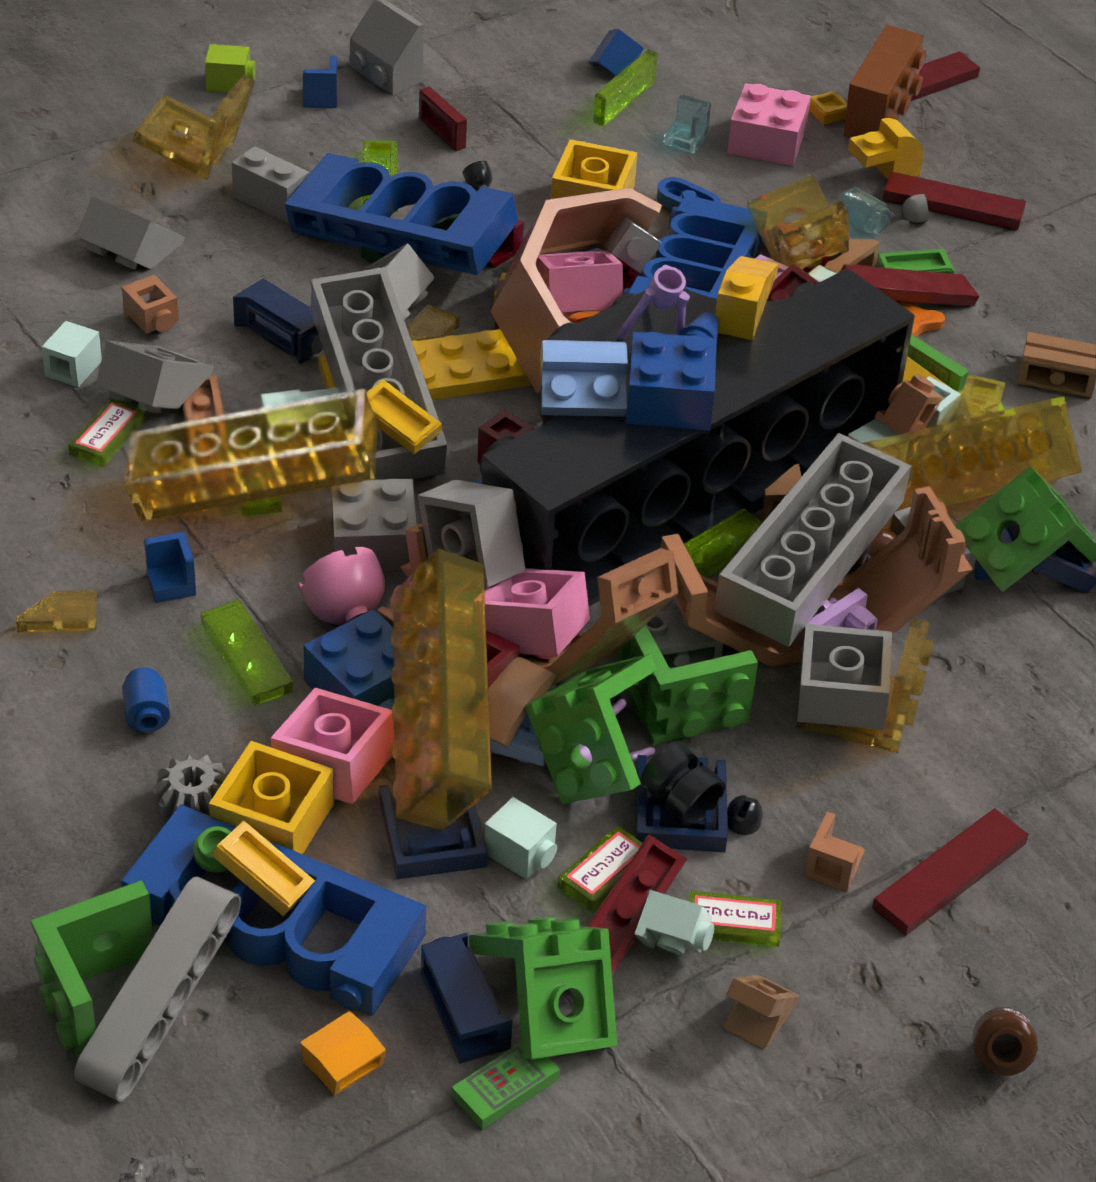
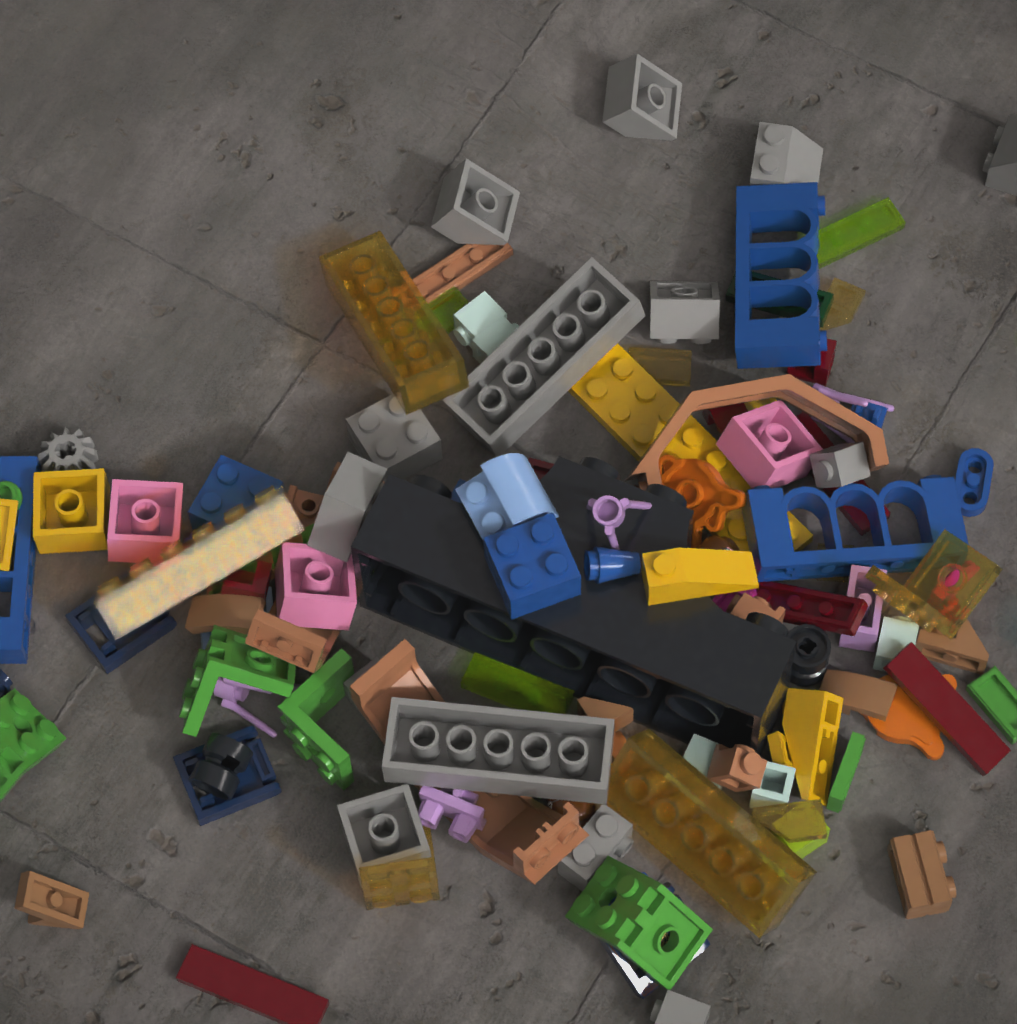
camera: 70 degrees right, 20 degrees up
(61, 612) = (204, 288): clear yellow tile -> none
(71, 354) = (474, 141): light aqua brick -> none
(106, 432) = (403, 212): tile -> none
(145, 700) = (138, 384): blue brick -> none
(158, 313) = (560, 162): nougat brick -> none
(170, 567) = (277, 332): blue panel -> none
(205, 136) = (798, 88): clear yellow bracket -> none
(226, 65) = (916, 49): lime brick -> none
(246, 652) = (227, 422): clear neon green tile -> none
(278, 318) = (606, 241): dark blue window -> none
(320, 86) = (942, 129): blue panel -> none
(343, 586) = (302, 454): bright pink cylinder -> none
(402, 417) = (489, 396): yellow tile -> none
(442, 118) = (956, 240): dark red tile -> none
(478, 174) = (895, 306): black hinge -> none
(520, 838) = (127, 683): light aqua brick -> none
(592, 169) = (930, 397): yellow brick -> none
(599, 869) = (136, 750): tile -> none
(650, 869) = (95, 781): dark red tile -> none
(674, 924) = (88, 816): light aqua brick -> none
(742, 917) = (131, 856): tile -> none
(753, 817) = (237, 830): black hinge -> none
(832, 859) = (222, 900): nougat panel -> none

